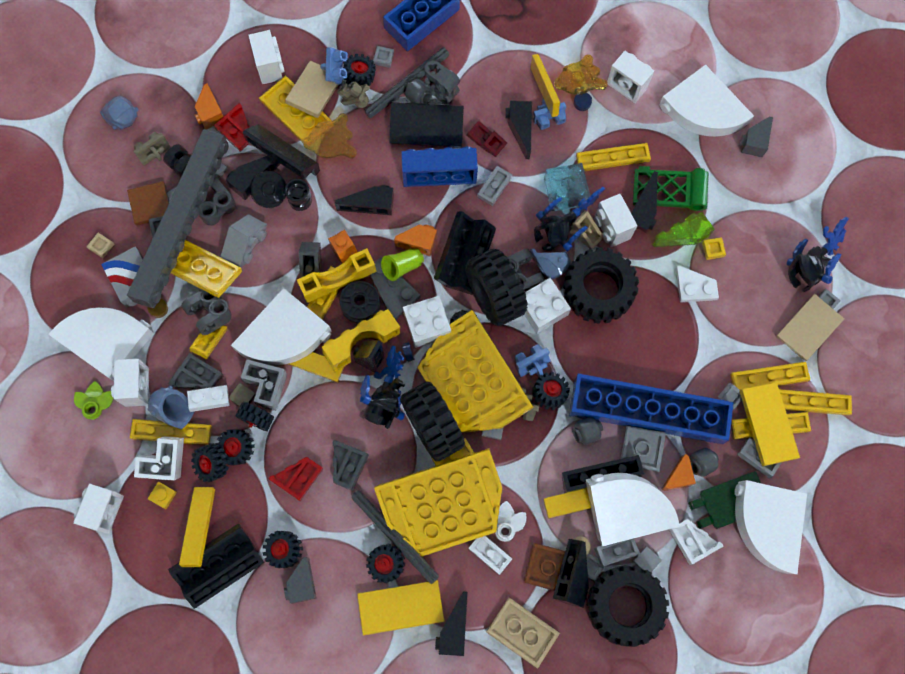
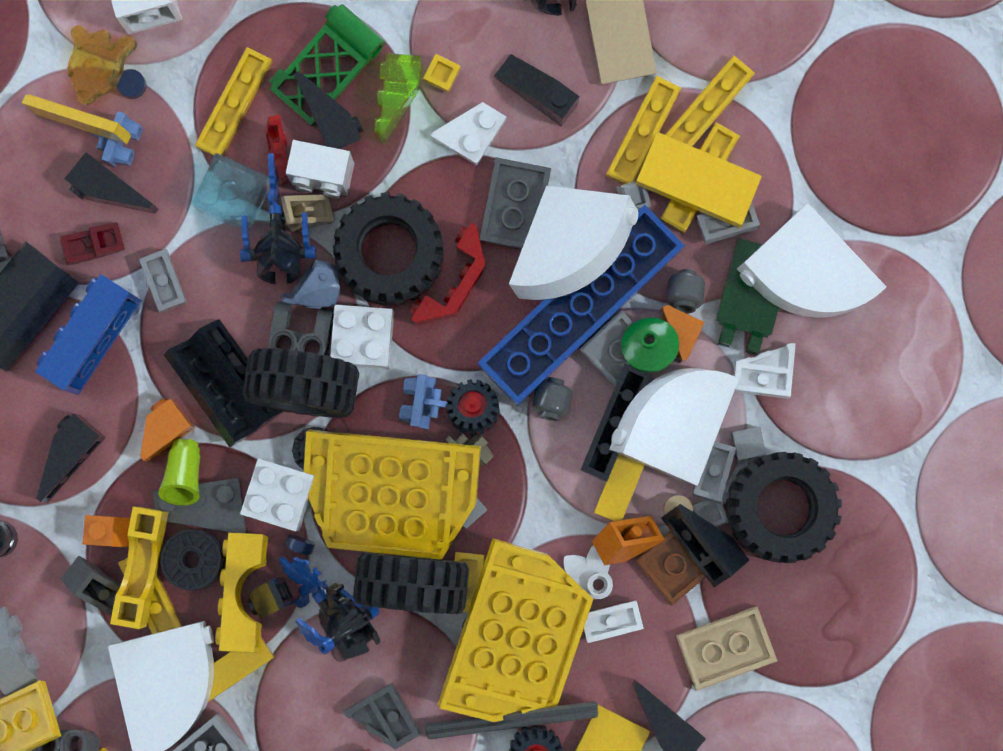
camera: 55 degrees left, 10 degrees up
(542, 528) = (626, 539): none -> orange slope
(584, 331) = (430, 310): none -> red slope
(610, 191) = (276, 144): none -> red wing
(656, 467) = (650, 356): none -> green dish
(676, 336) = (513, 202): none -> dark grey plate
(682, 377) = (571, 241): none -> white brick
(747, 305) = (538, 89): none -> black slope

